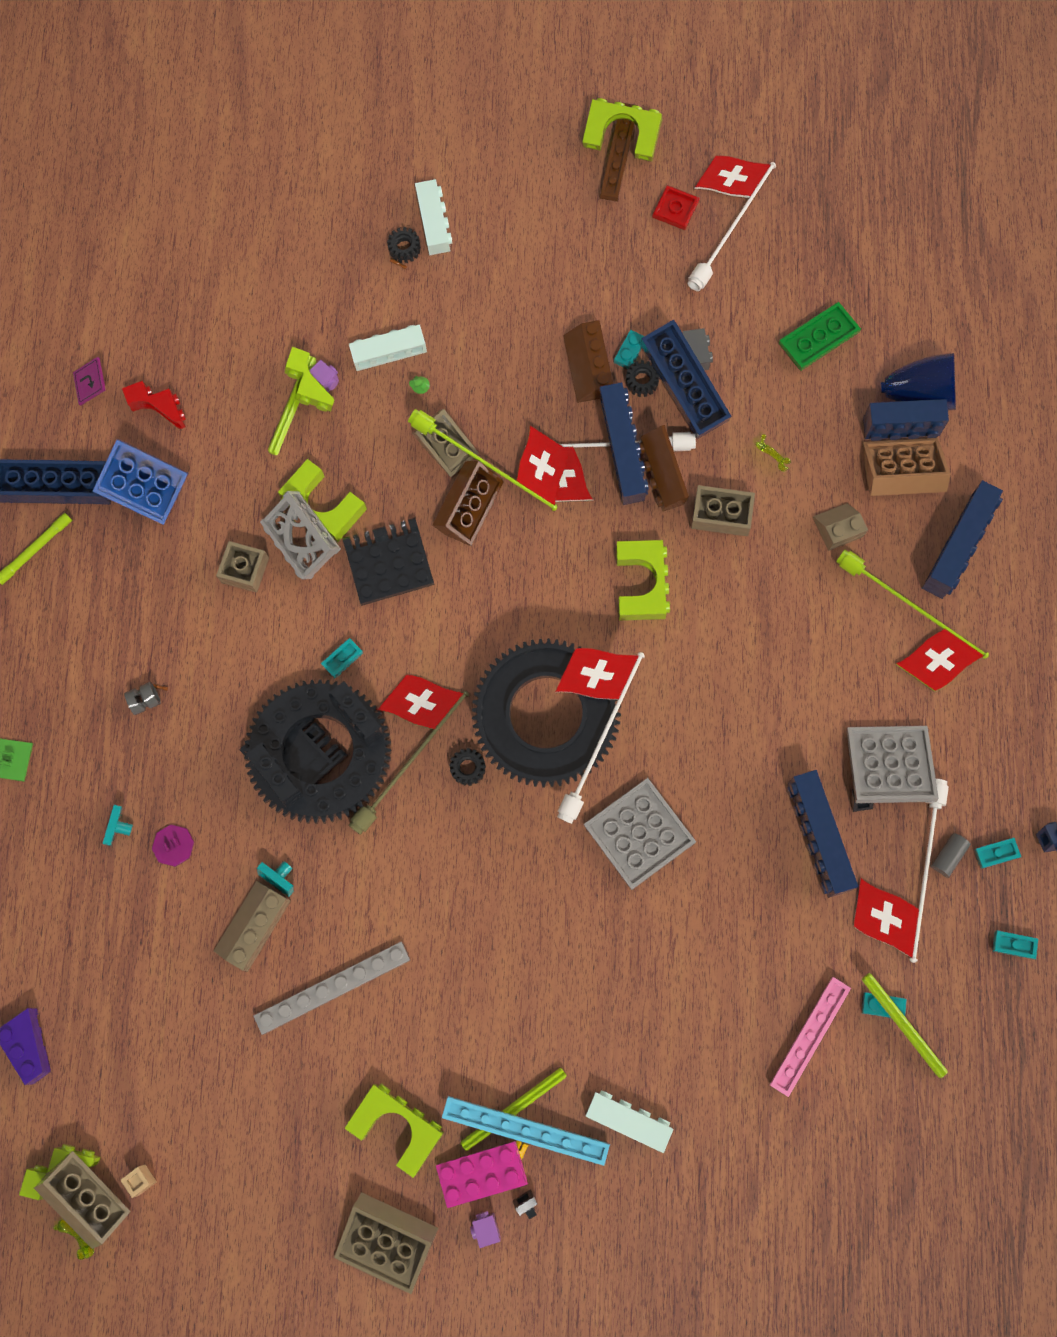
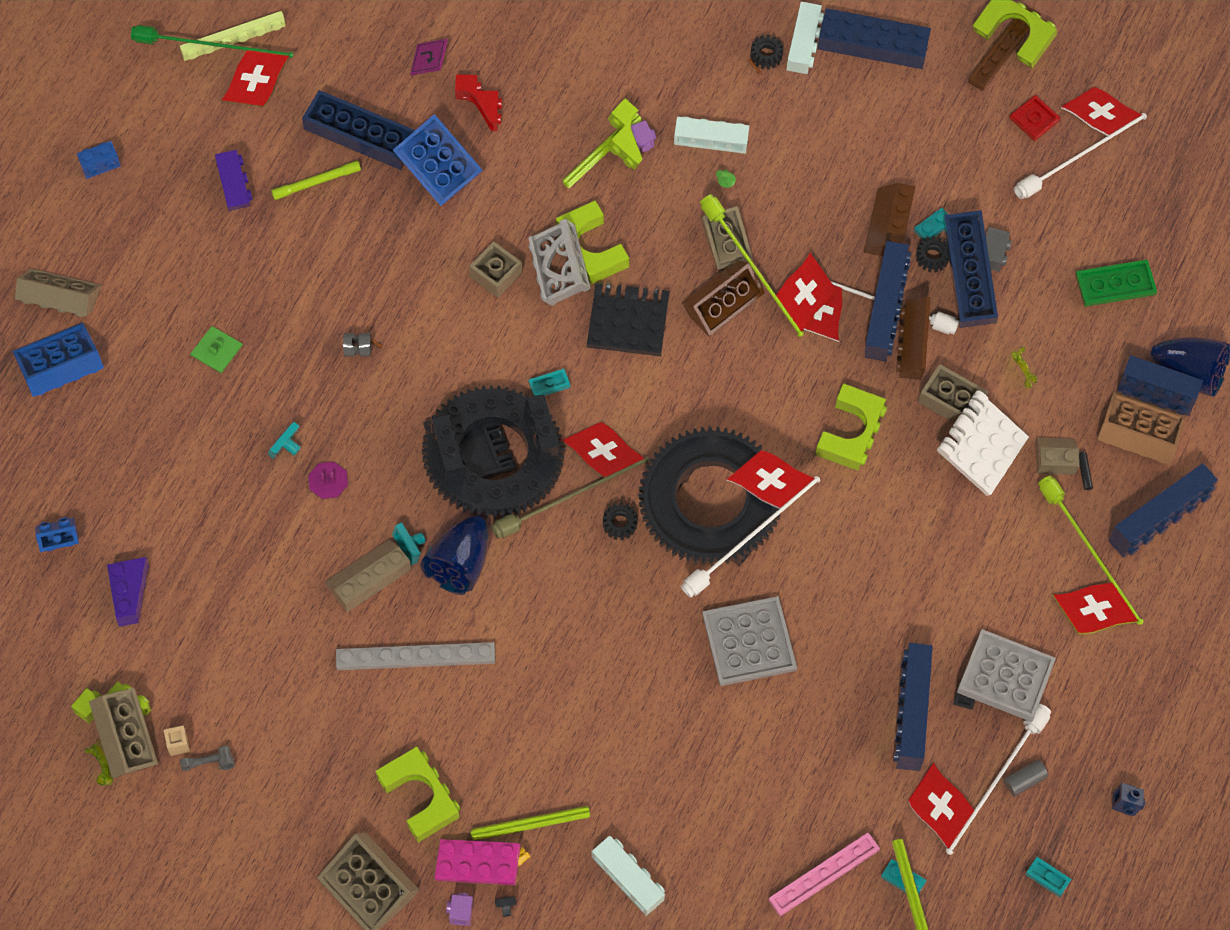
camera: 15 degrees right, 10 degrees down
(191, 1176) = (223, 757): none -> dark grey brick
(330, 870) = (458, 556): none -> clear blue cylinder
(497, 191) = (874, 38): none -> dark blue brick
(525, 1130) = (533, 841): medium azure plate -> none
(772, 545) = (984, 444): none -> white hinge
(873, 532) = (1085, 471): none -> black piece
(997, 853) = (1069, 793): teal plate -> none

